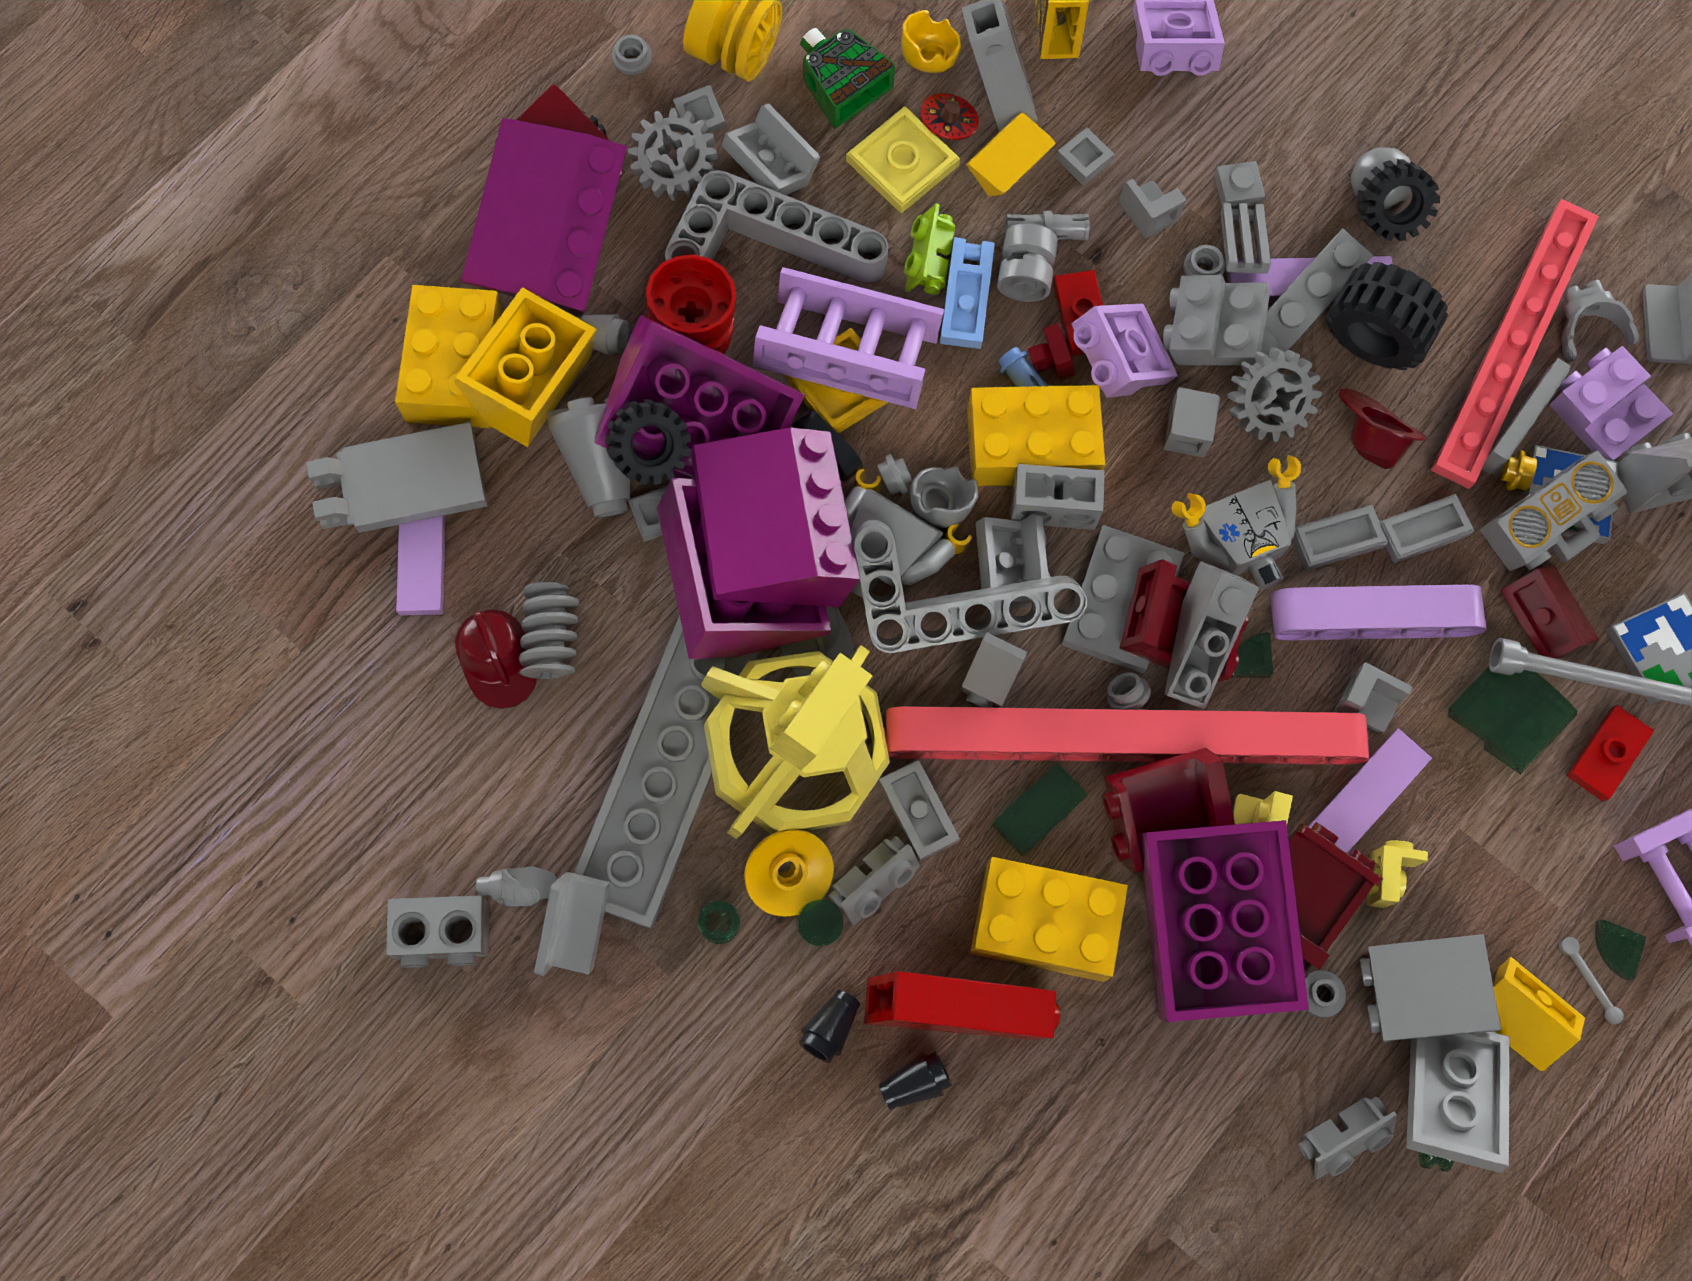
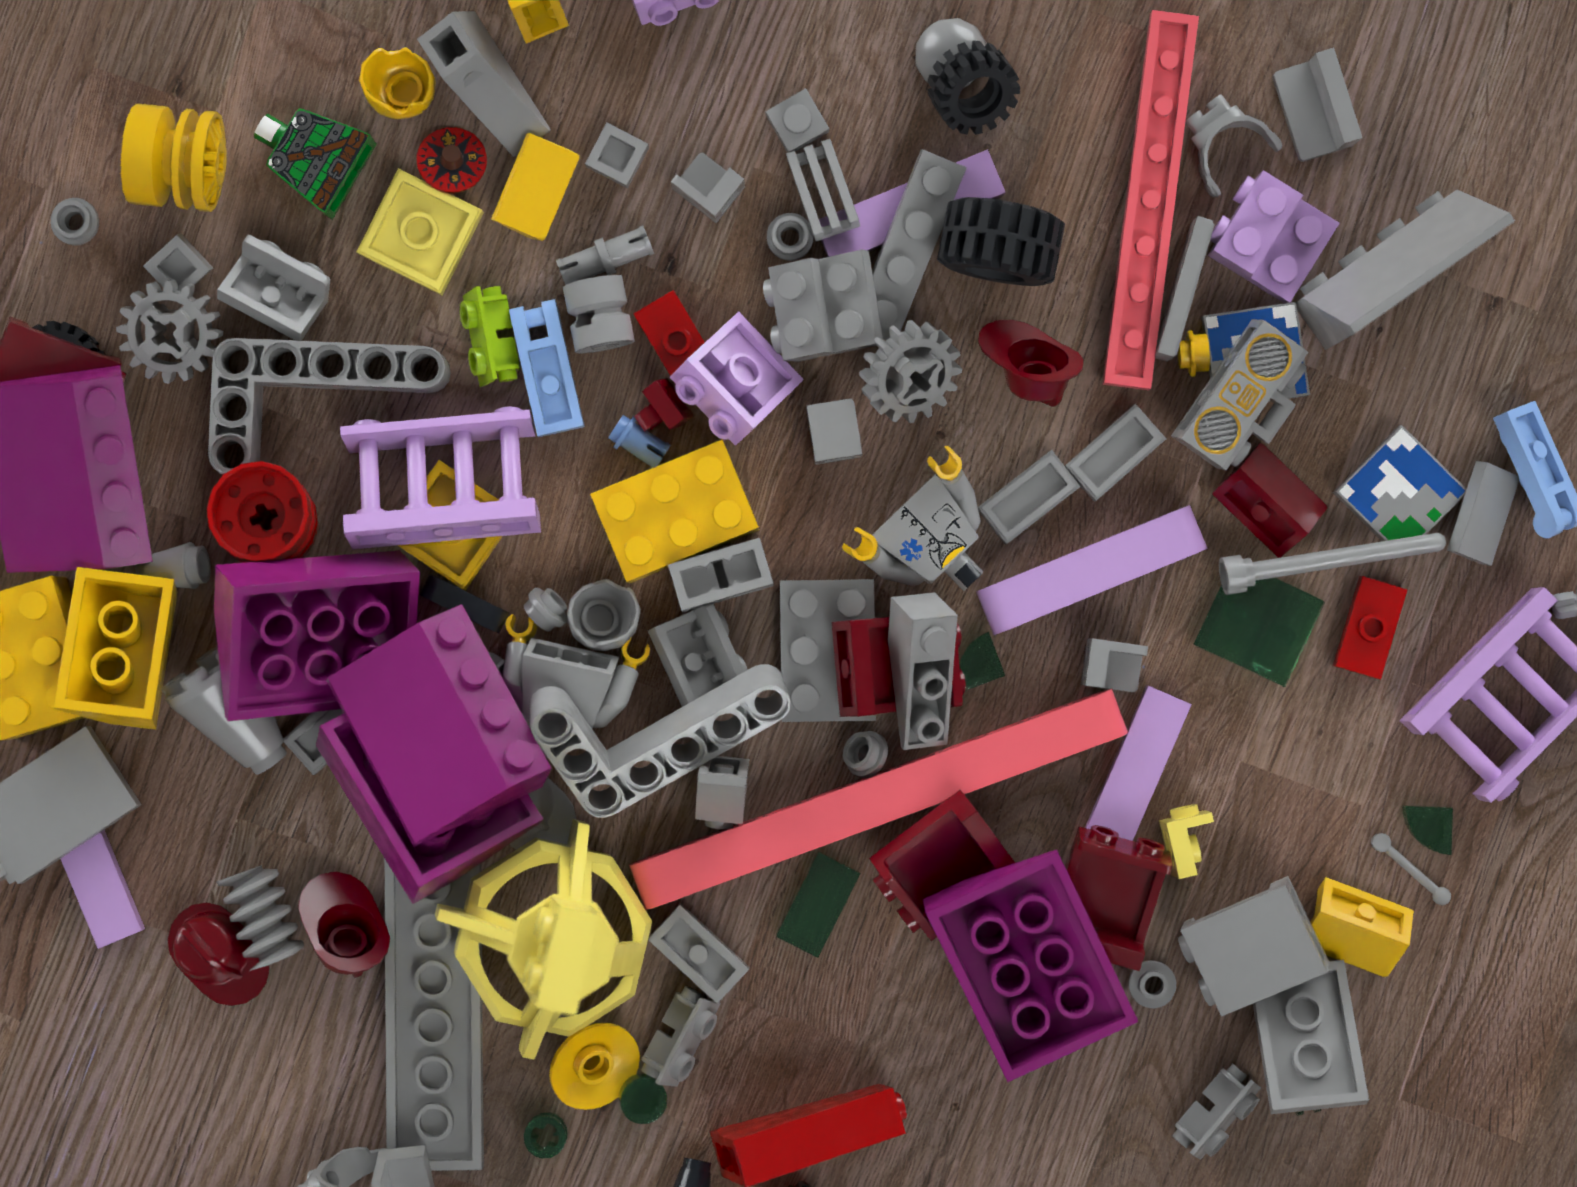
camera: 15 degrees left, 15 degrees up
(616, 666) = (343, 923): none -> dark red piece
(666, 460) = (293, 720): black tyre -> none
(1049, 919) = (863, 1017): yellow brick -> none
(1255, 810) = (1035, 834): light yellow bracket -> none

